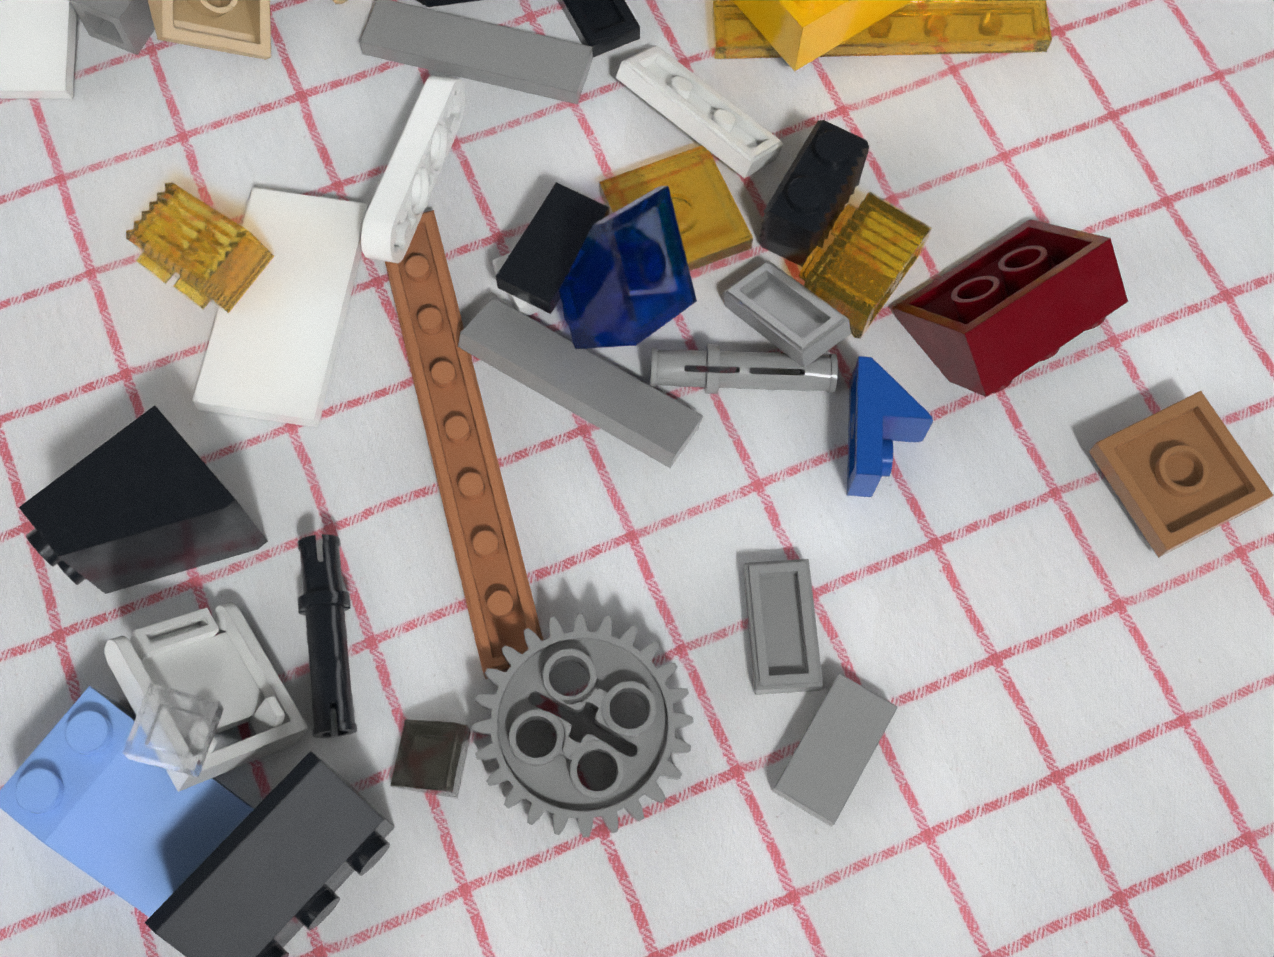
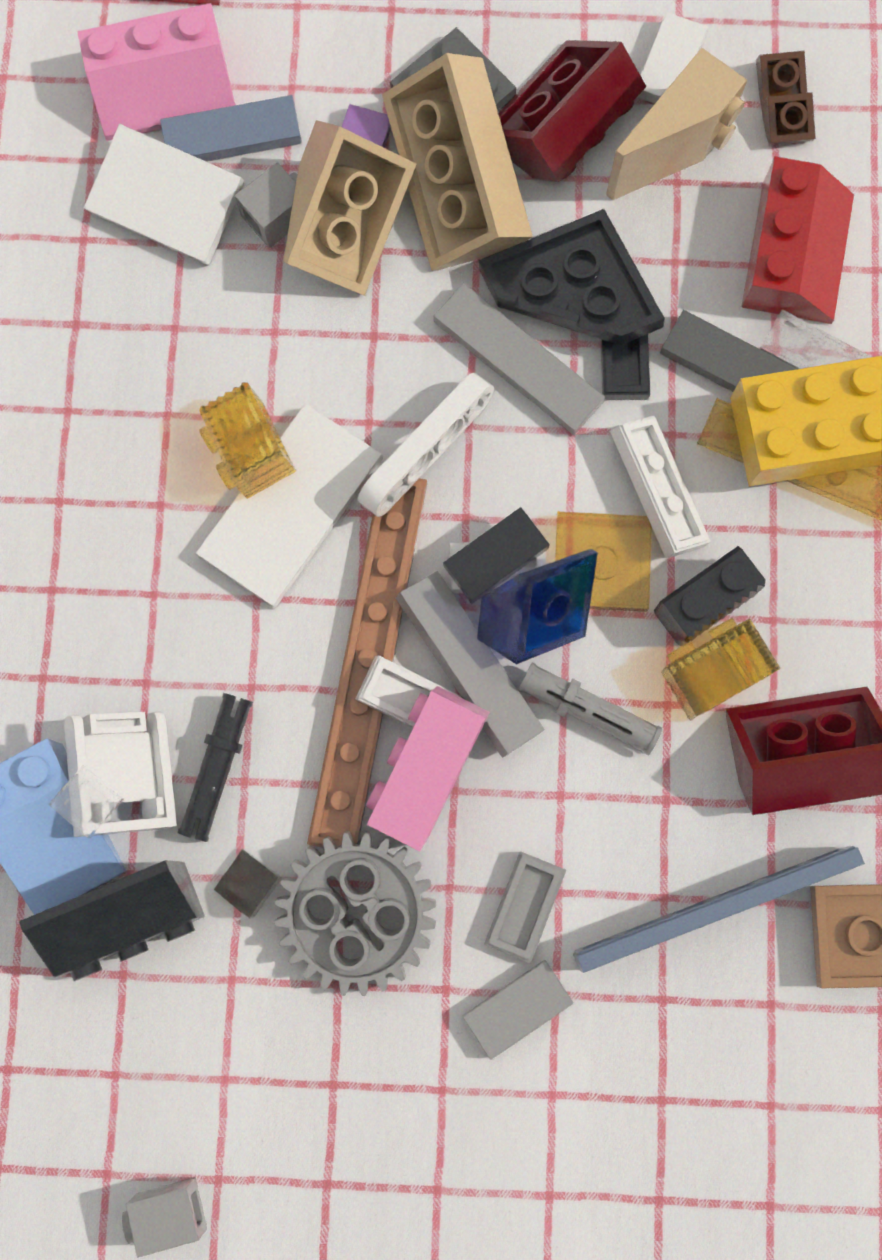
camera: 30 degrees right, 10 degrees up
(138, 511) = (129, 626): black slope -> none
(527, 449) = (393, 689): none -> white tile
(585, 508) = (425, 766): none -> bright pink brick
(787, 313) = (642, 681): light grey tile -> none
(877, 416) = (667, 785): blue slope -> none
(998, 522) = (717, 908): none -> sand blue tile

